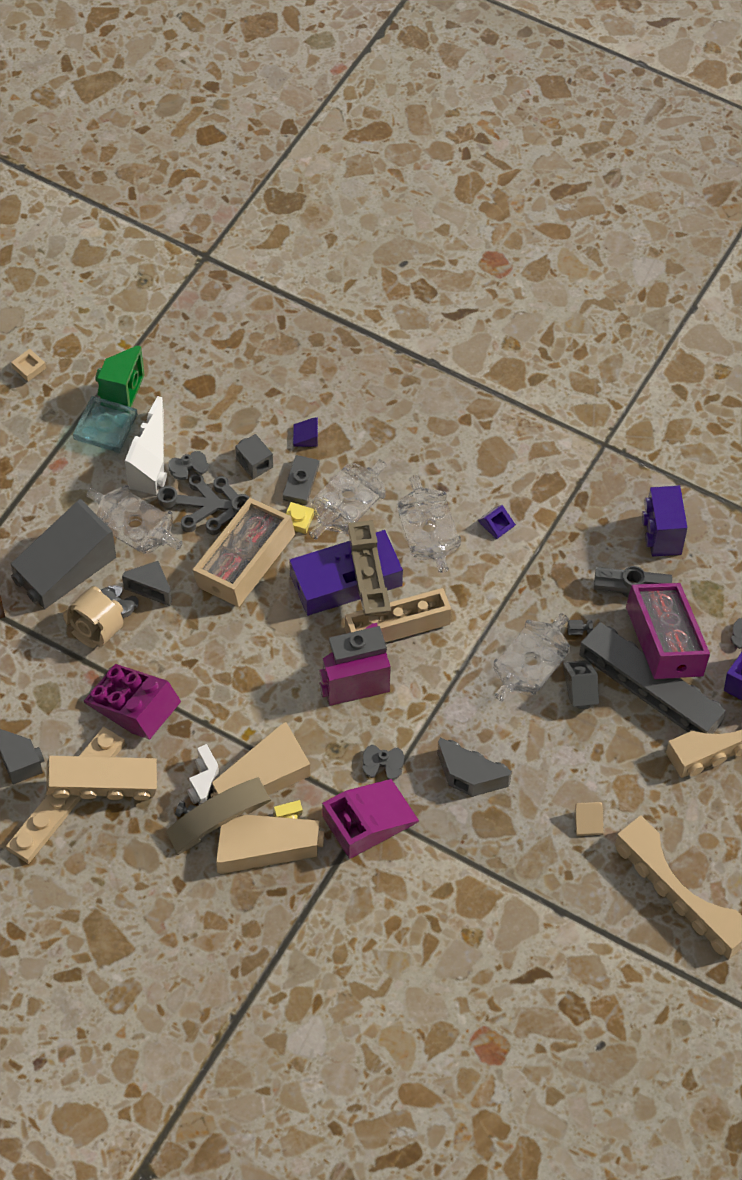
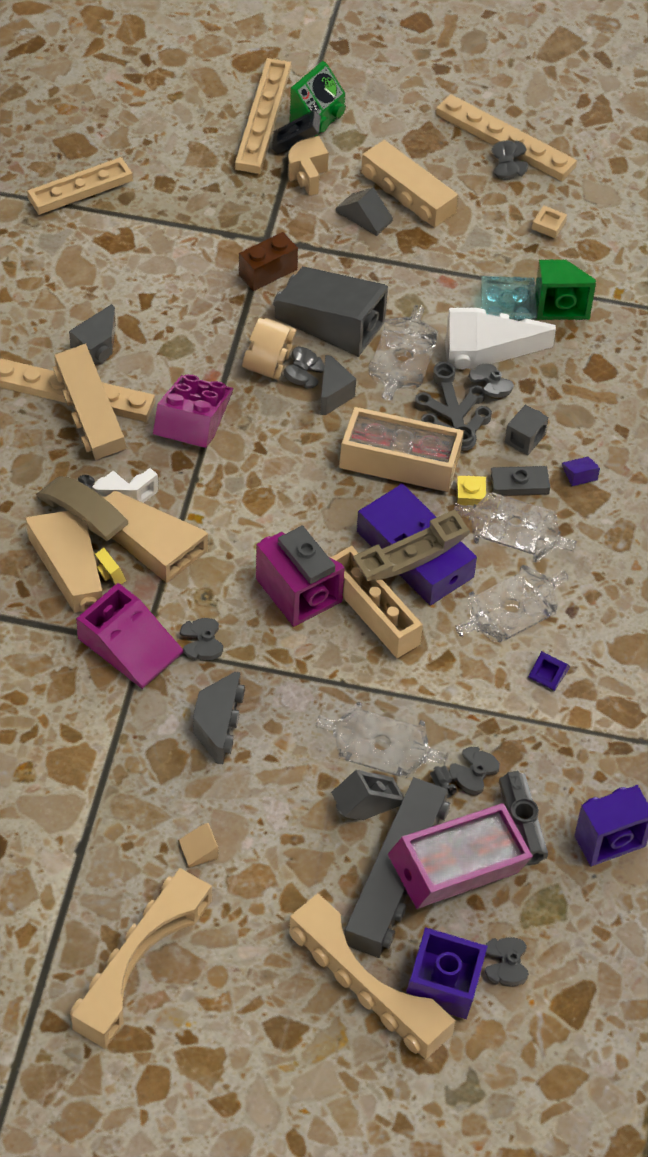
camera: 70 degrees right, 5 degrees down
(581, 607) = (472, 778): none -> dark grey piece

